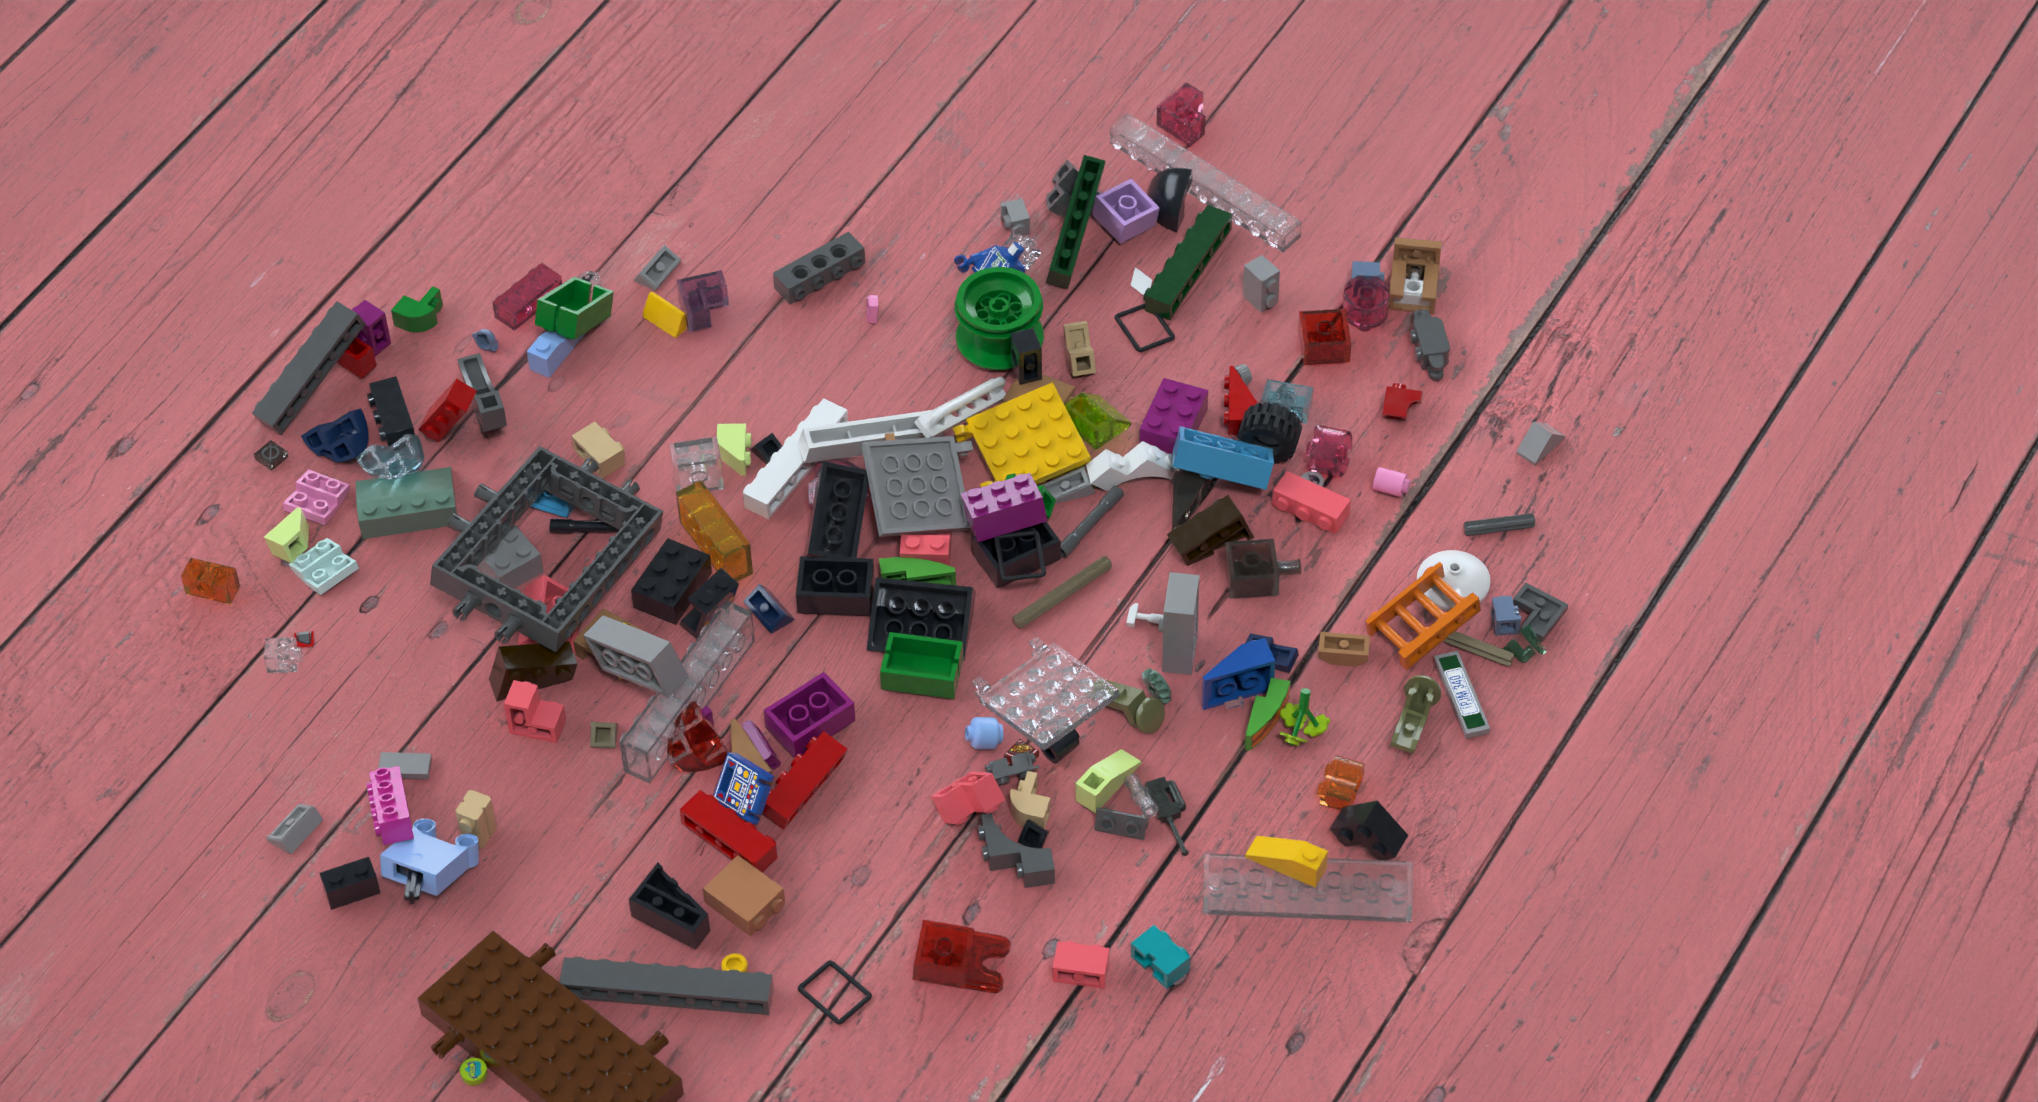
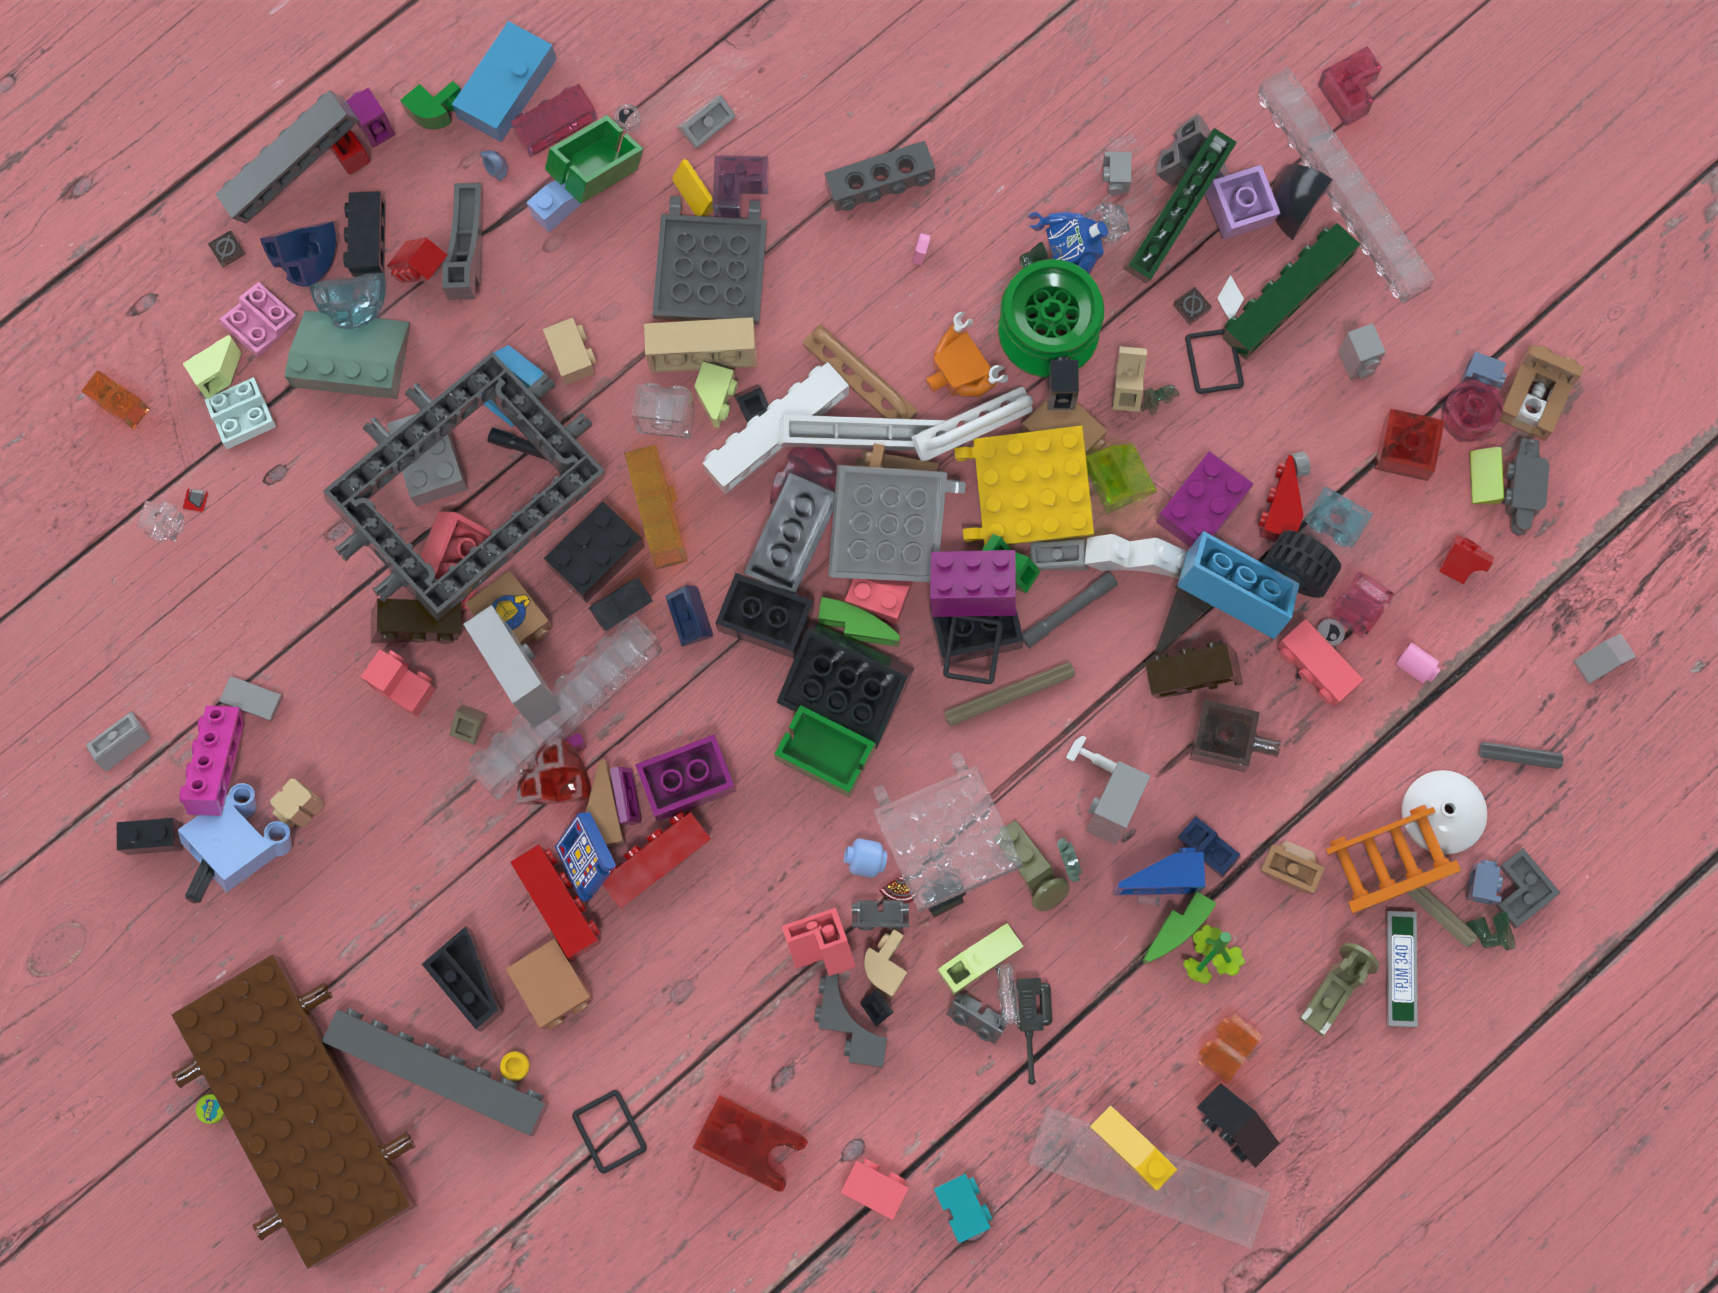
camera: 20 degrees right, 25 degrees up
(475, 279) = (504, 81): none -> dark azure brick
(698, 363) = (709, 266): none -> dark grey plate
(699, 412) = (690, 343): none -> tan brick
(836, 394) = (823, 338): none -> medium nougat piece
(936, 376) = (961, 364): none -> orange torso
(1105, 357) = (1151, 398): none -> piece
(1112, 293) = (1192, 306): none -> clear smoke tile
(1396, 346) = (1486, 476): none -> lime slope

